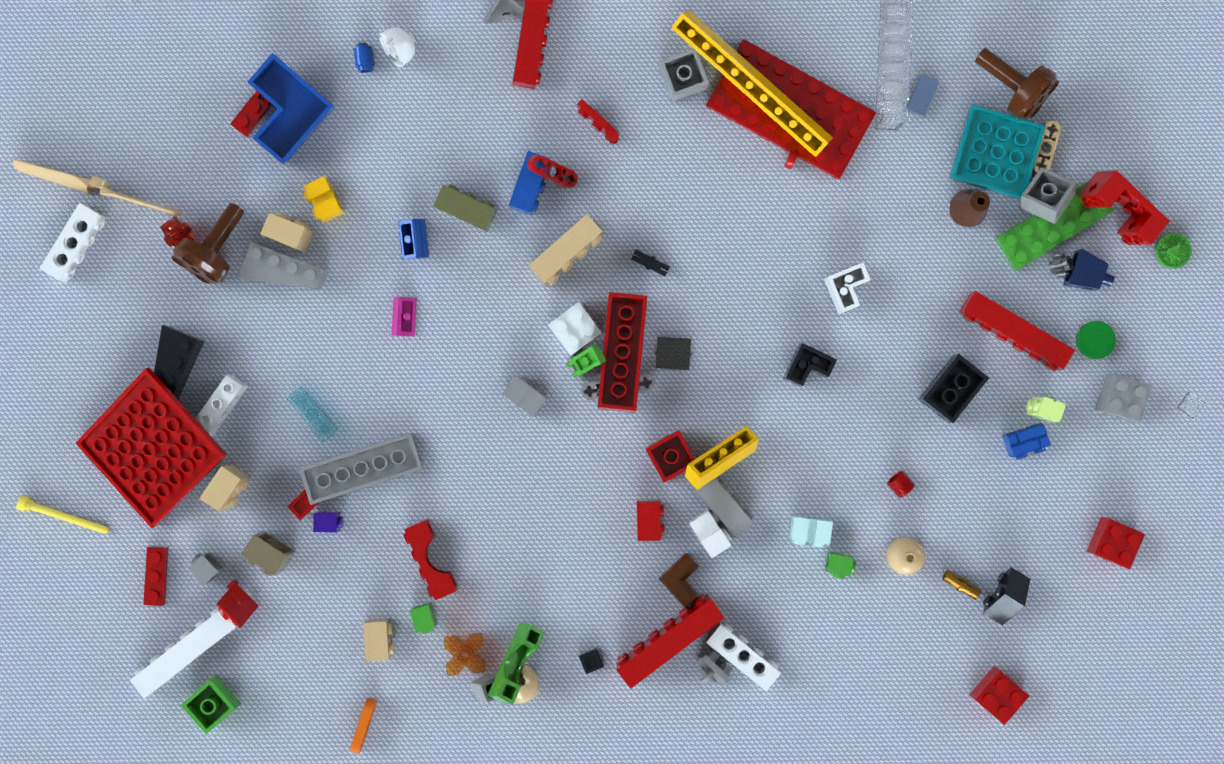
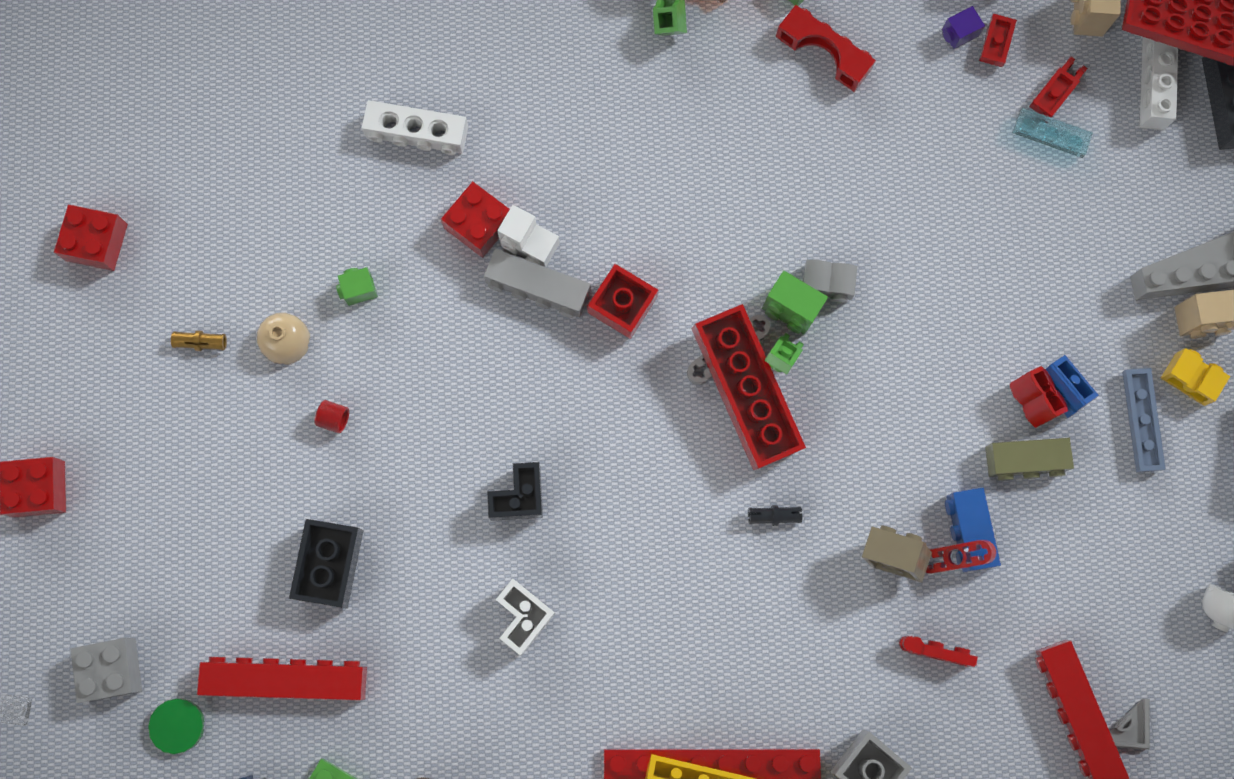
camera: 150 degrees right, 10 degrees down
(289, 442) = (1057, 89): none -> red hinge
(360, 468) = (962, 101): light grey plate -> none
(375, 191) = (1143, 420): none -> sand blue plate
(404, 316) = (1019, 296): dark pink slope -> none
(436, 242) = (1038, 396): none -> red brick
(559, 391) = (793, 303): none -> bright green brick
(566, 250) = (884, 470): tan brick -> none
(575, 329) = (818, 386): white brick -> none
(591, 193) = (897, 553): none -> dark tan brick
(591, 661) = (583, 36): black tile -> none
(648, 520) = (606, 218): red brick -> none
(669, 640) = (509, 97): red brick -> none
(673, 353) = (686, 424): clear smoke piece -> none
(675, 579) = (538, 171): reddish brown brick -> none
(711, 670) = (429, 96): light grey hips -> none
(721, 457) = (563, 327): yellow brick -> none
(736, 566) = (475, 219): none -> red brick
(791, 159) = (677, 739): red tile -> none
(810, 530) = (411, 306): light aqua brick -> none
(1008, 597) = (134, 353): black brick -> none
(1026, 440) = (203, 551): blue brick -> none
(1045, 409) = (198, 600): yellowish green brick -> none

